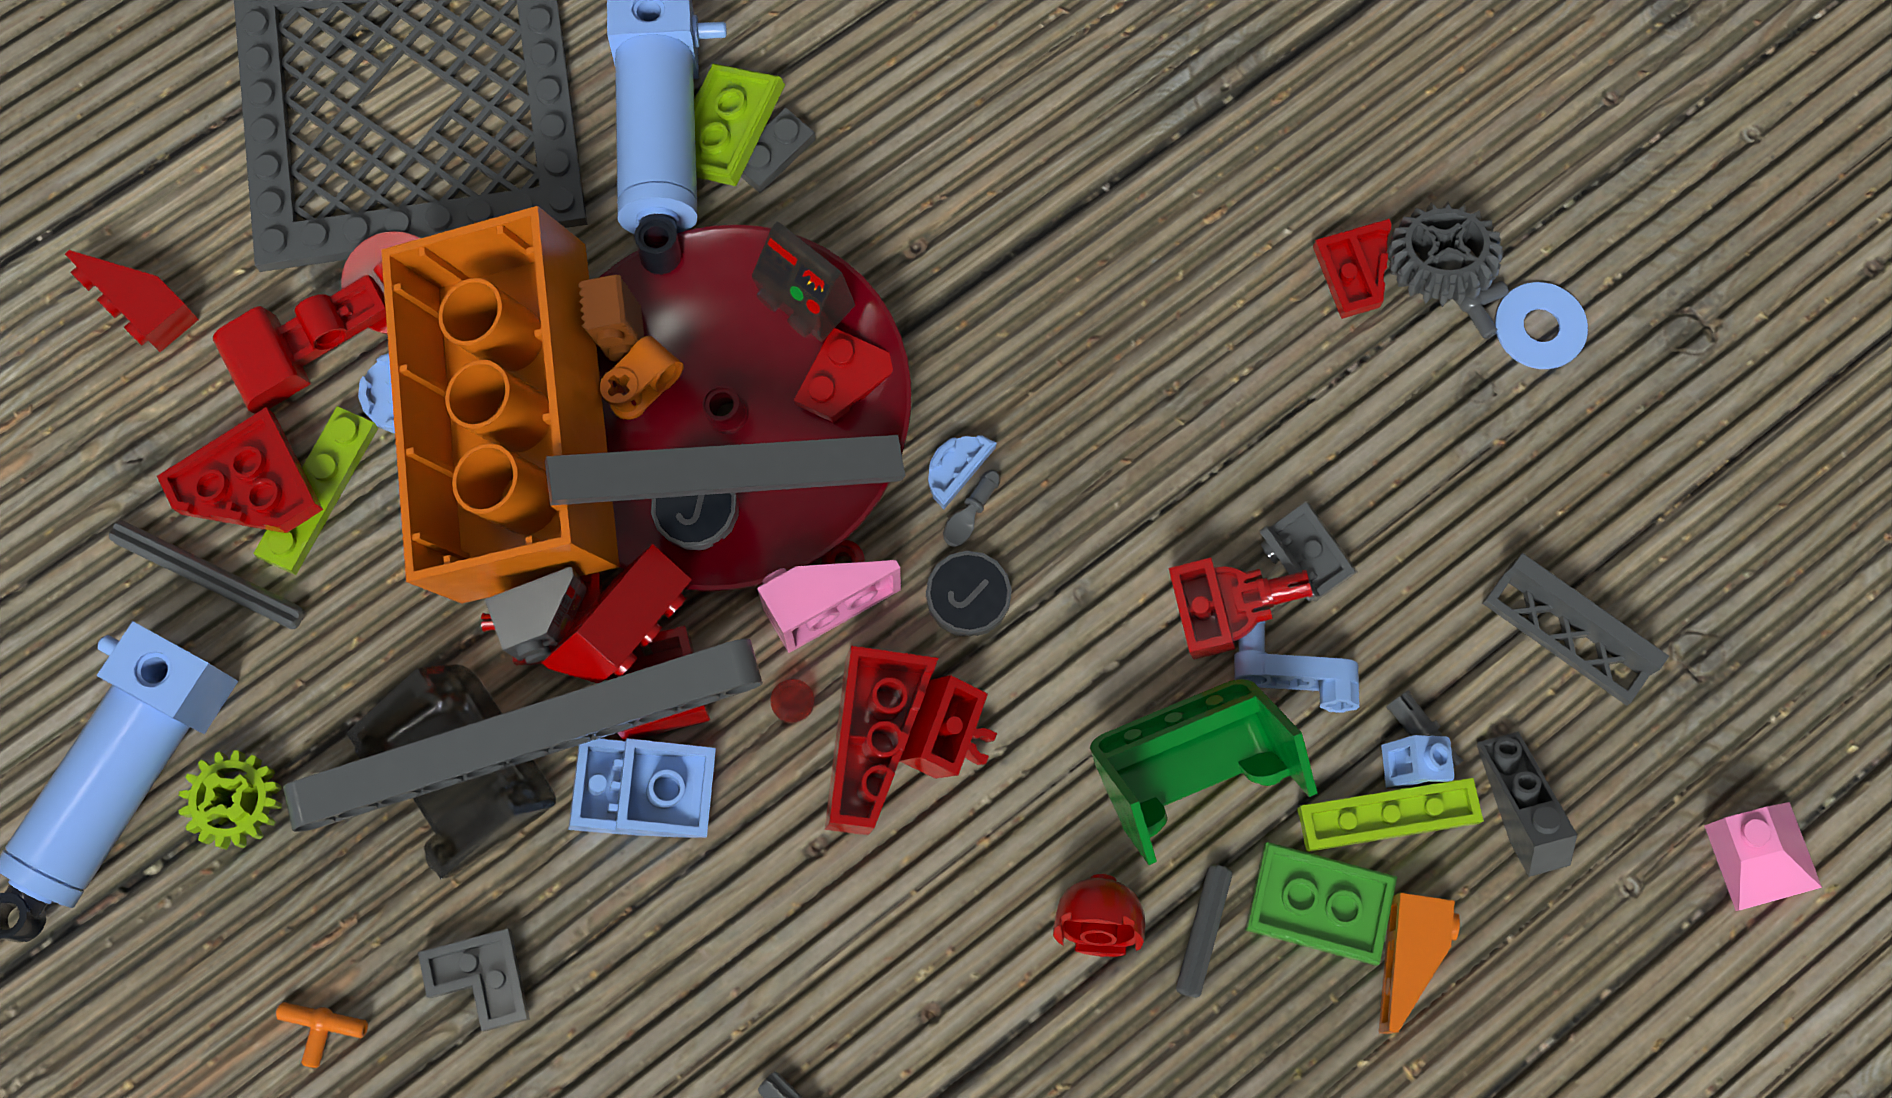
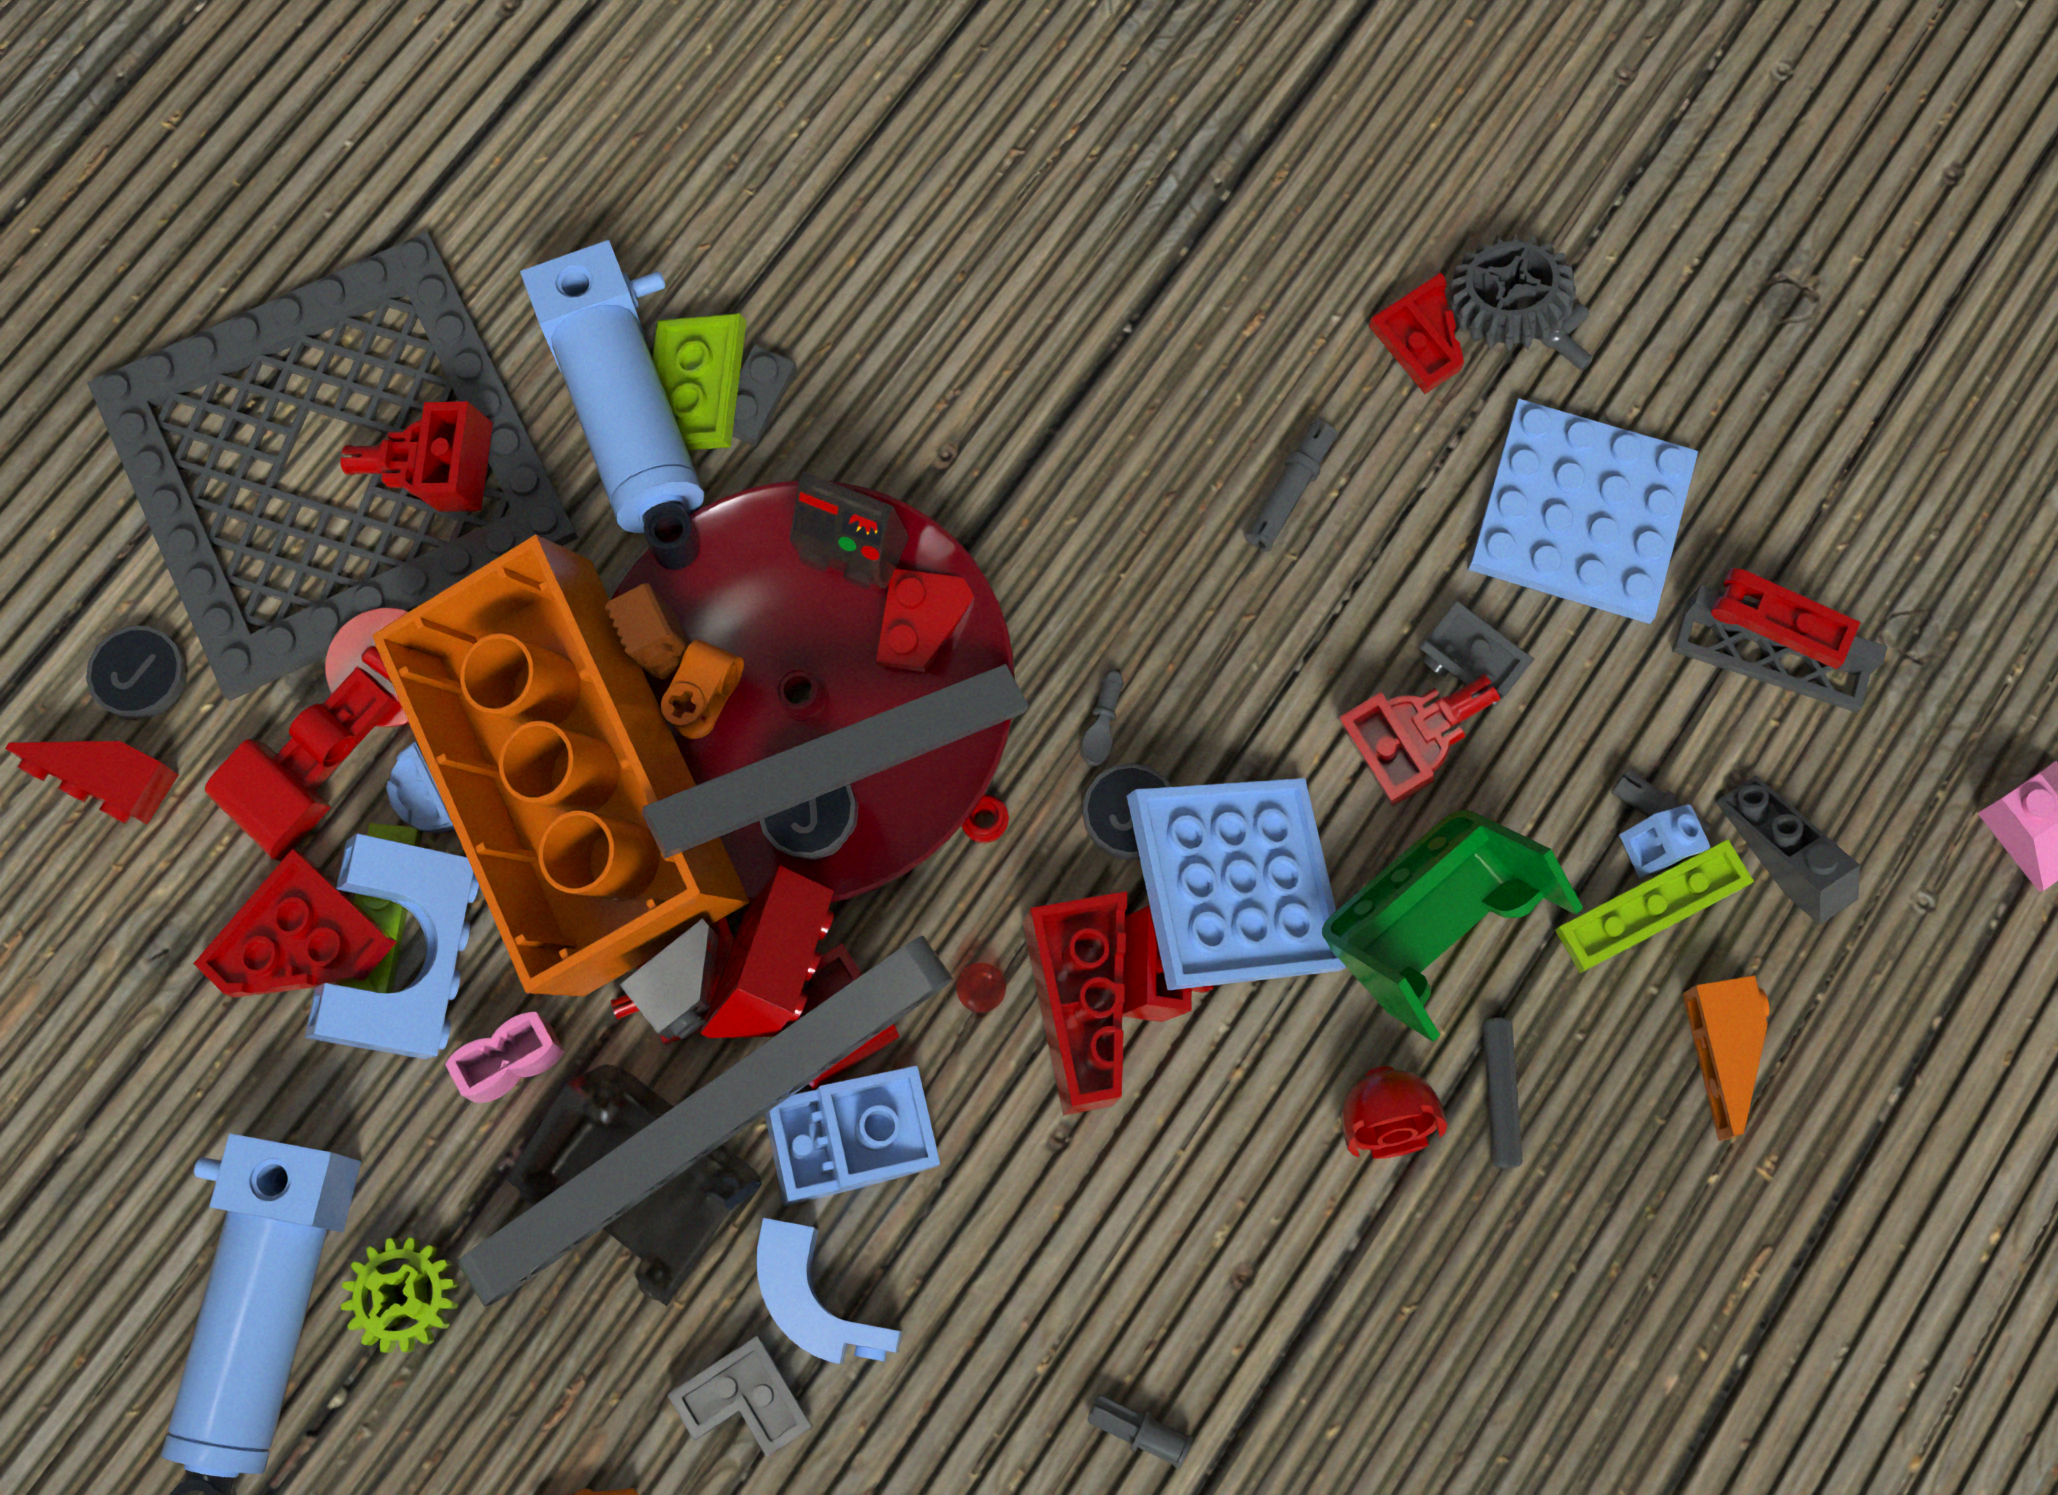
camera: 15 degrees left, 0 degrees up
(192, 225) = (136, 672): none -> black tile
(207, 574) = (286, 1054): dark grey axle -> none
(367, 636) = (494, 1065): none -> bright pink brick
(369, 480) = (436, 892): none -> light blue arch
(489, 122) = (434, 458): none -> red brick
(546, 912) = (787, 1289): none -> light blue arch
(821, 597) = (976, 865): bright pink slope -> none
(955, 464) = (1070, 676): light blue plate -> none
(1032, 678) = (1234, 881): none -> light blue plate
(1211, 349) = (1300, 469): none -> dark grey pin
(1321, 903) = (1614, 1023): bright green tile -> none
(1333, 677) = (1547, 779): light blue beam -> none
(1445, 460) = (1584, 511): none -> light blue plate
(1534, 353) = (1631, 369): light blue gear -> none
(1586, 603) = (1786, 618): none -> red plate

